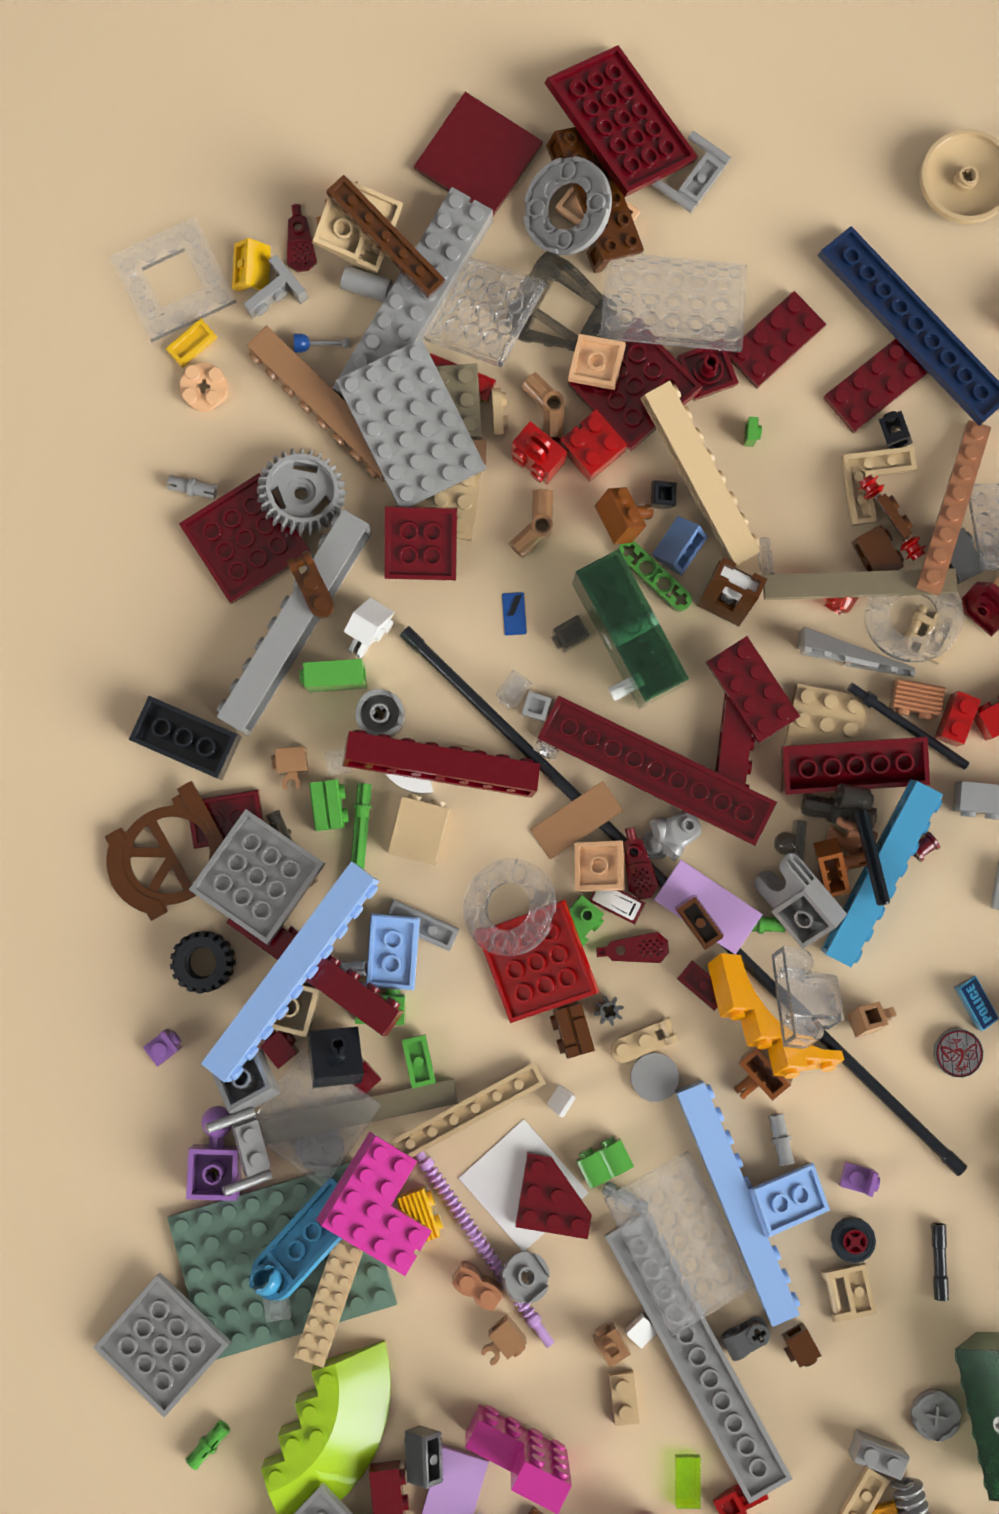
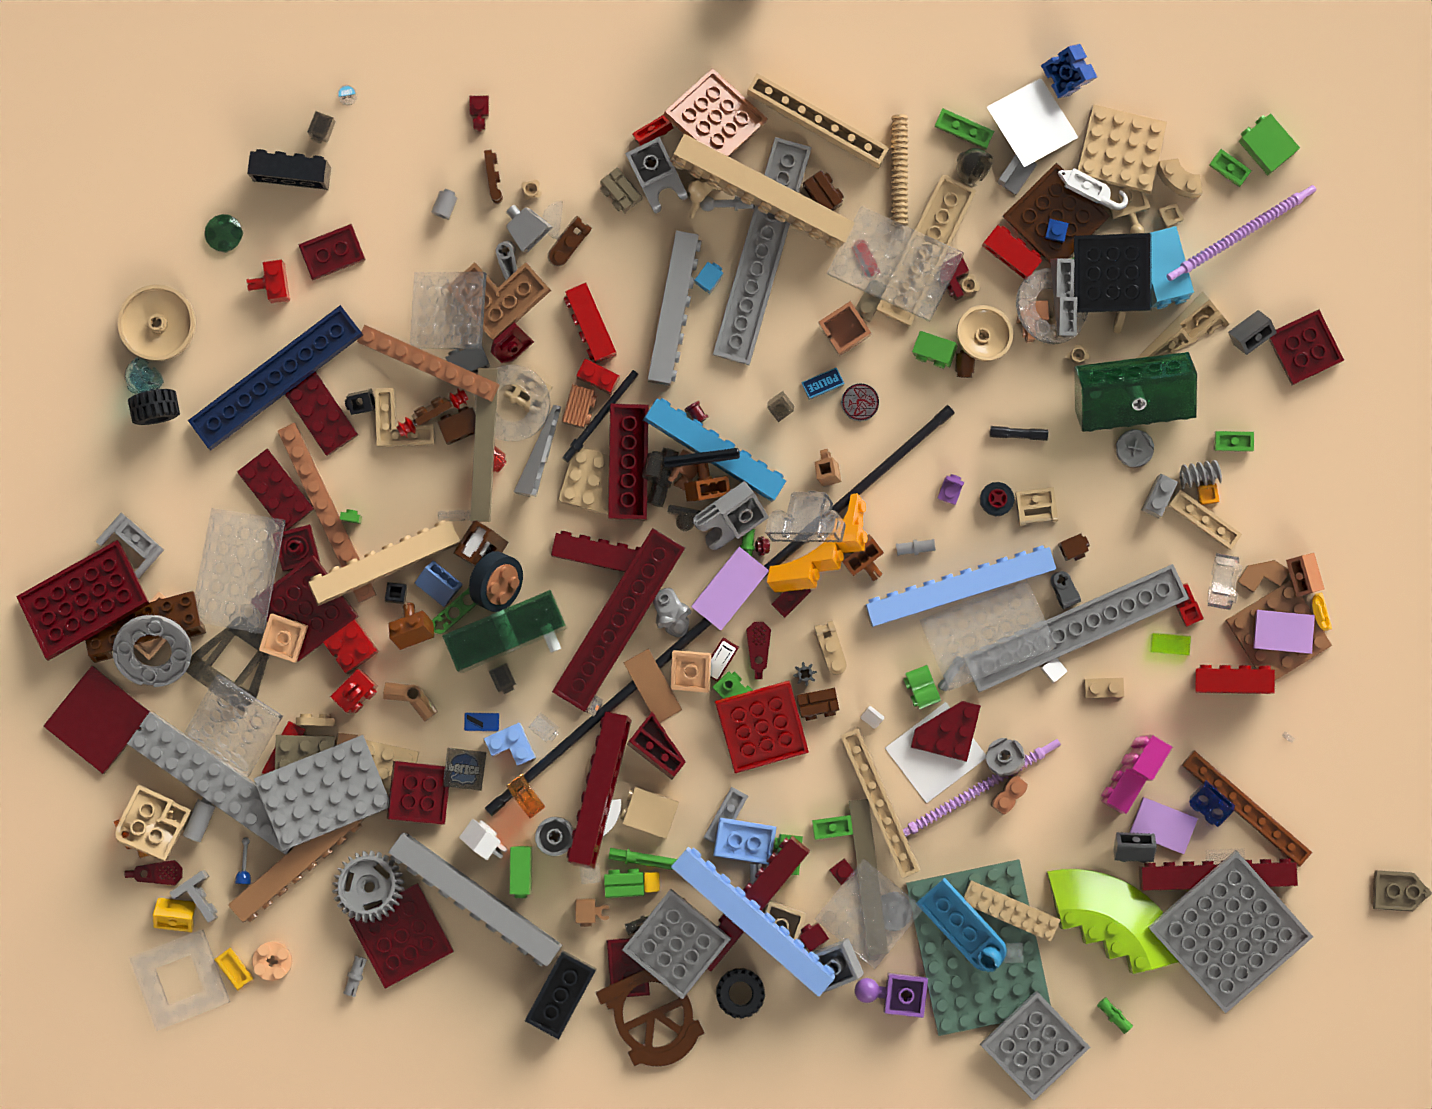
camera: 85 degrees left, 0 degrees up
(163, 1046) = (805, 1030): medium lavender bracket -> none
(249, 1146) = (888, 964): light grey plate -> none
(312, 585) = (448, 881): reddish brown plate -> none
(333, 839) = (651, 882): none -> yellow slope
(335, 1057) = (823, 892): black brick -> none
(363, 1209) = (938, 878): dark pink piece -> none
(385, 236) = (167, 801): reddish brown plate -> none
(419, 1205) = (952, 836): yellow brick -> none
(424, 676) = (527, 798): none -> clear orange torso
(454, 596) = (464, 769): none -> clear smoke tile
(496, 651) = (513, 739): none -> light blue brick
(500, 831) = (656, 747): none -> dark red wedge
(505, 1338) = (1051, 775): medium nougat brick -> none
(536, 706) = (559, 710): light grey plate -> none
(540, 914) = (720, 720): clear plate -> none
(543, 393) = (326, 676): medium nougat piece -> none
(611, 1344) = (1061, 694): medium nougat brick -> none
(637, 862) = (691, 639): dark red piece -> none
(654, 1077) = (859, 641): light grey tile -> none
(691, 612) = (495, 581): none -> black wheel
(699, 921) = (740, 597): reddish brown brick -> none
(752, 689) = (561, 537): dark red plate -> none
(764, 943) = (762, 546): none -> dark red plate
(766, 396) = (322, 502): none -> nougat plate
(789, 1199) = (961, 546): light blue tile -> none
(865, 180) = (153, 406): none -> black tyre
(898, 165) = (141, 377): none -> clear light blue cylinder
(944, 952) = (780, 406): none -> clear smoke brick

